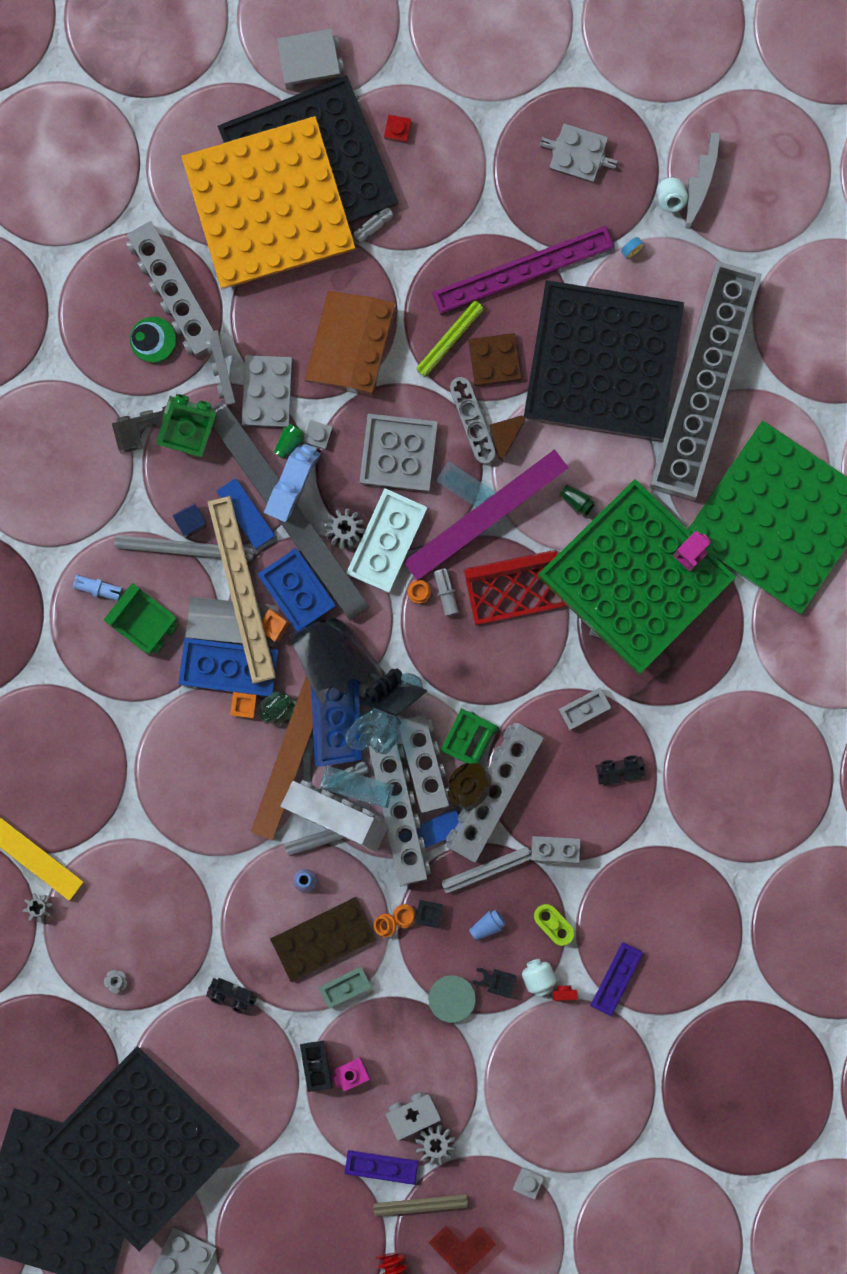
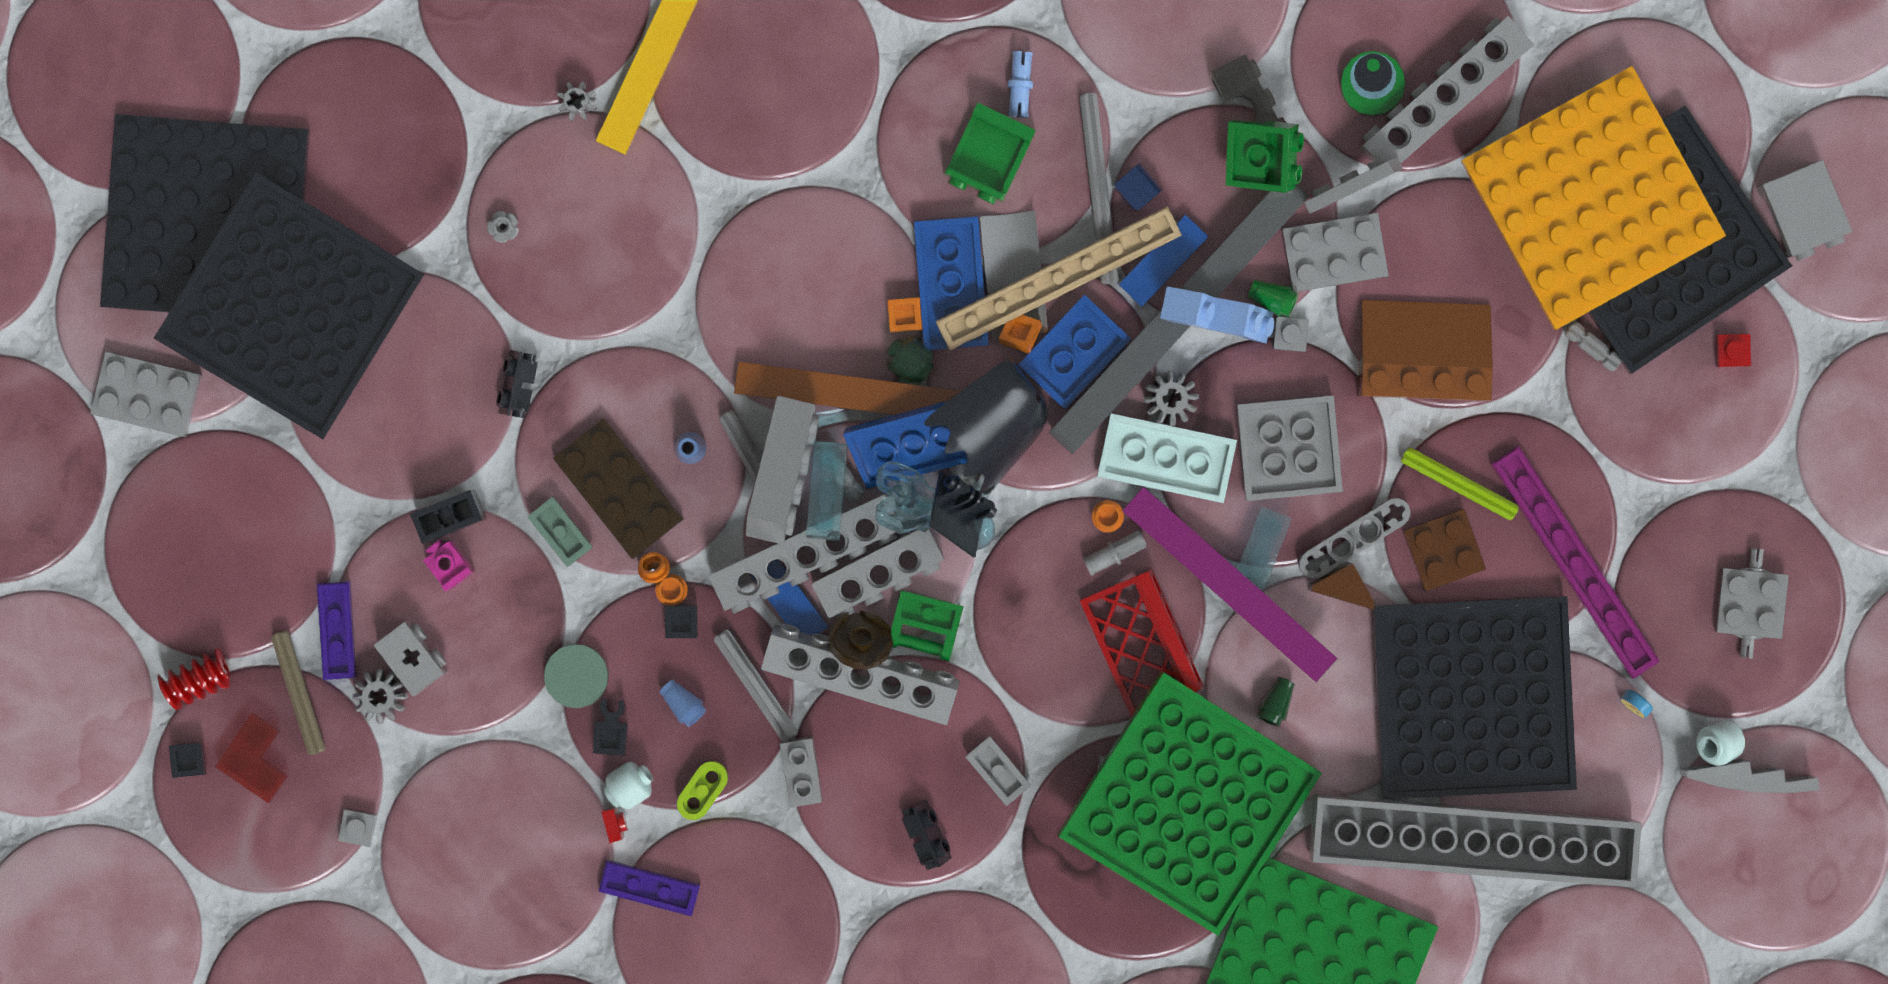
camera: 75 degrees right, 5 degrees up
(692, 550) = (1240, 871): dark pink brick -> none

